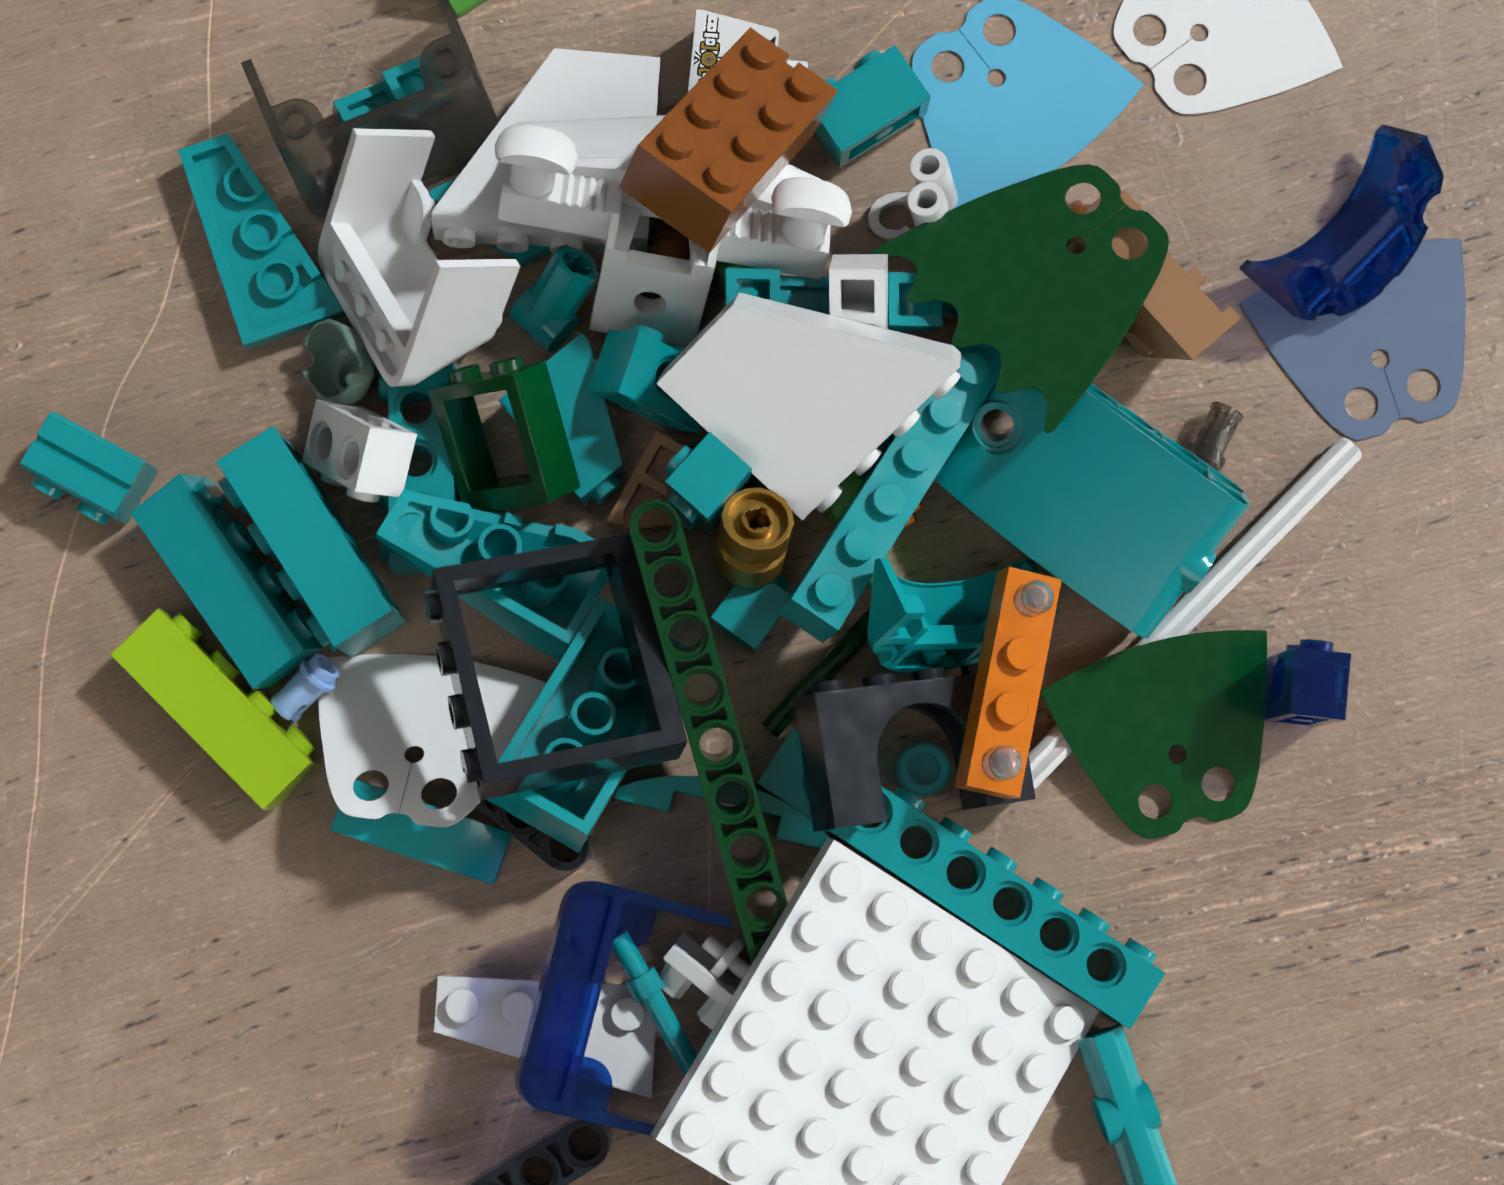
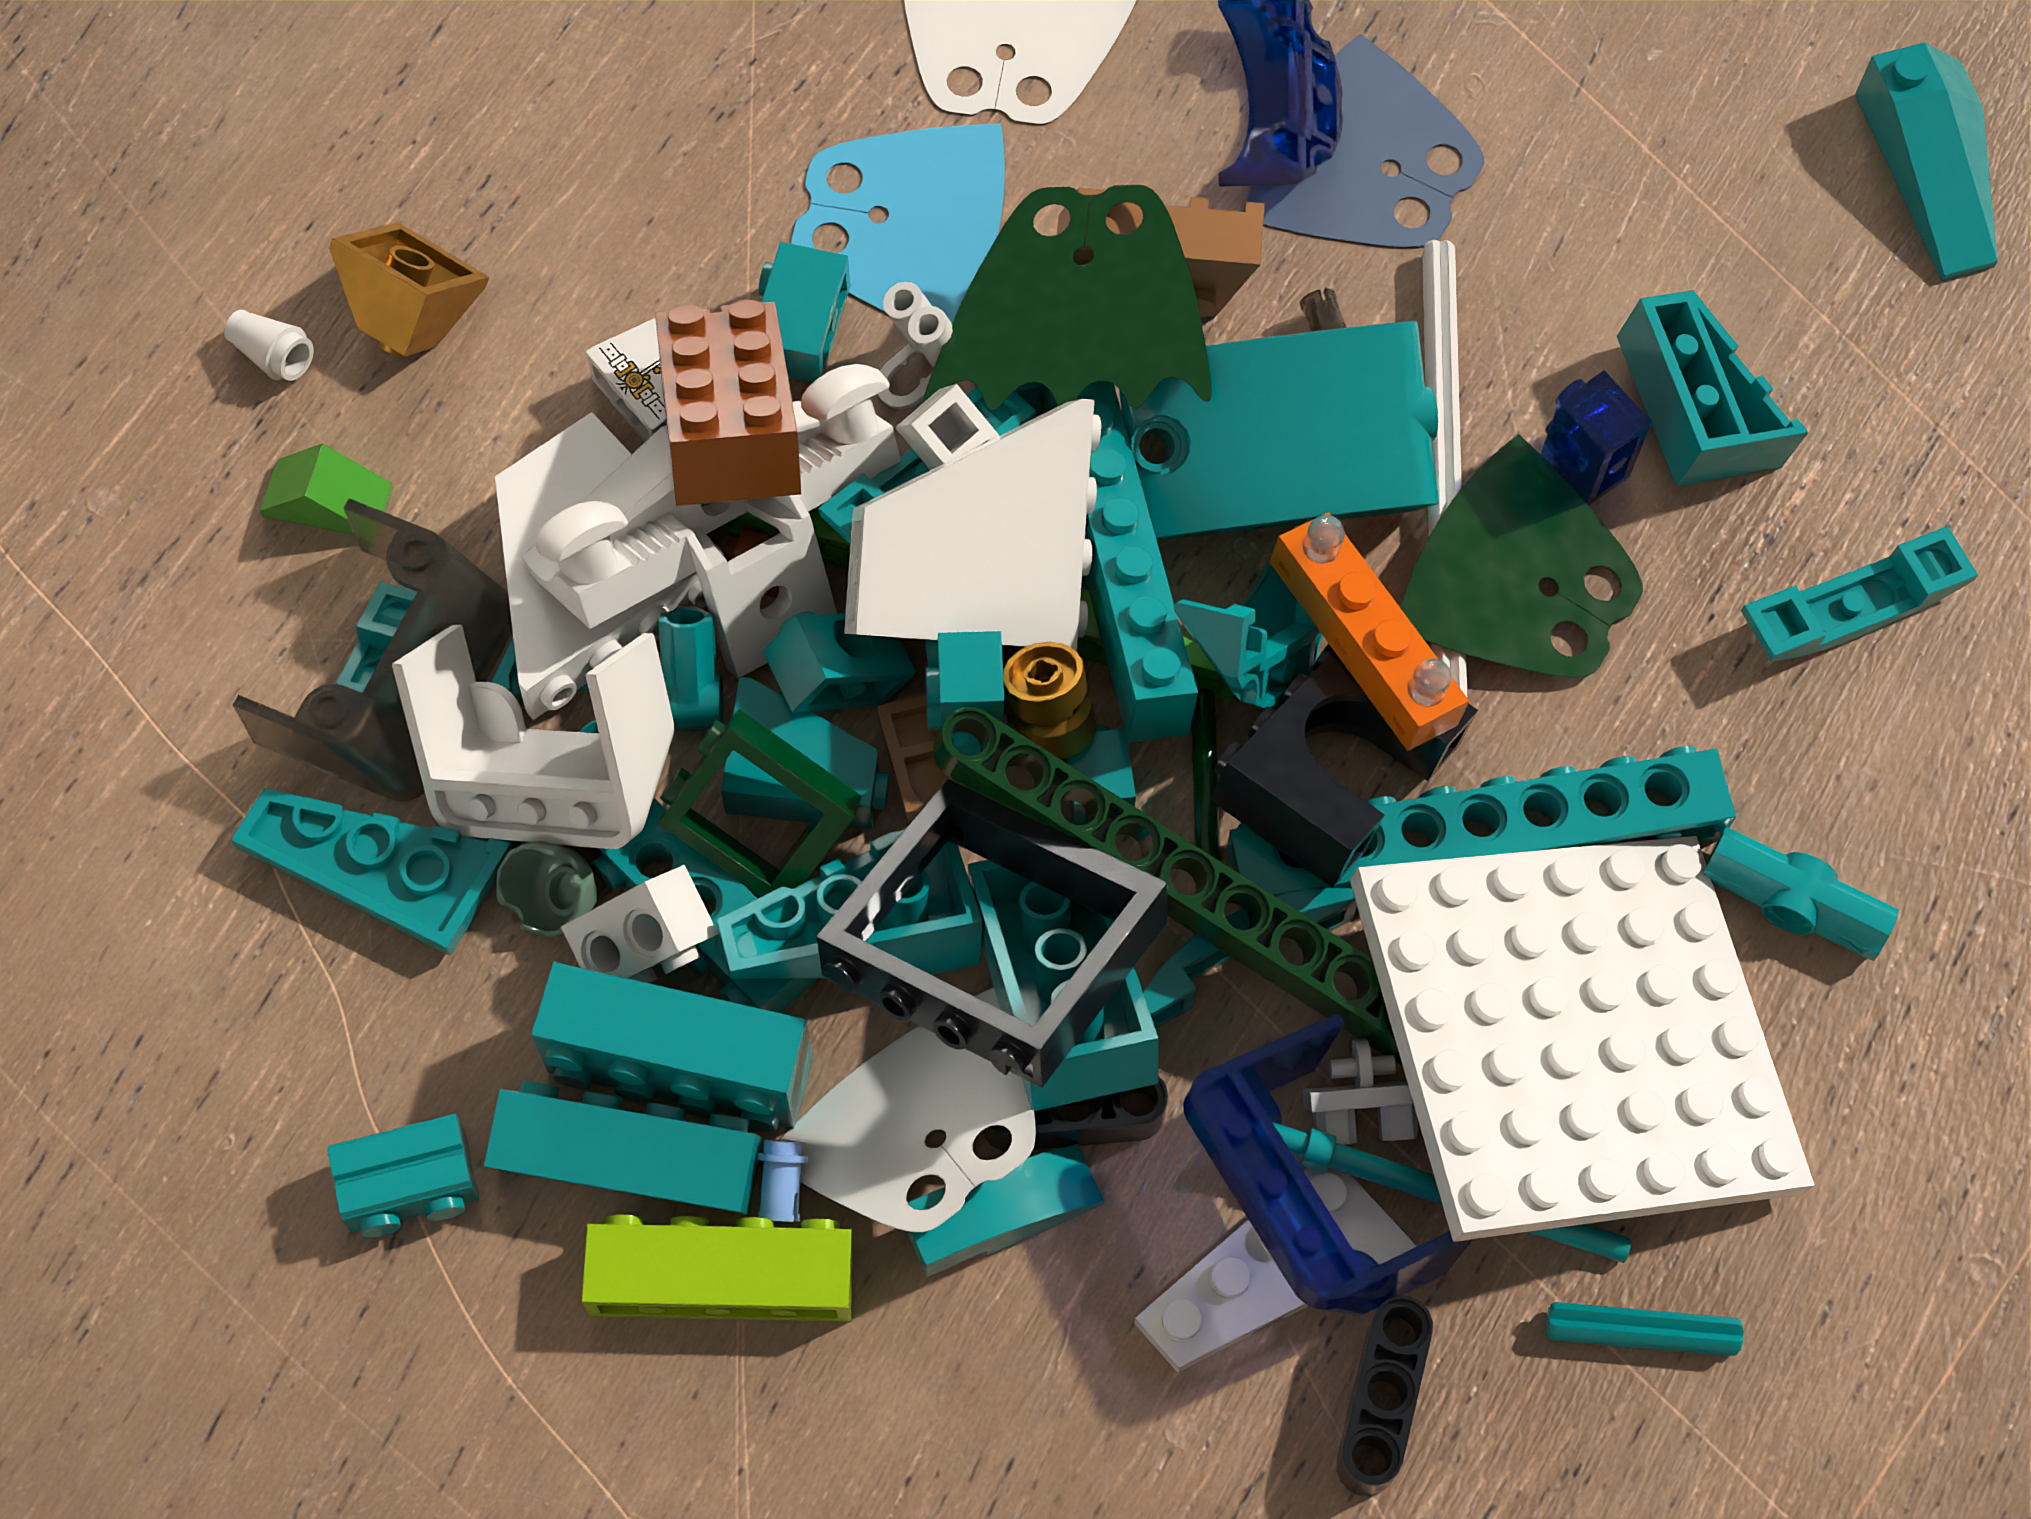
camera: 40 degrees left, 15 degrees down
(923, 769) = (1365, 774): teal tile -> none
(1378, 957) = (1862, 600): none -> teal slope
(1417, 720) = (1700, 395): none -> teal wedge

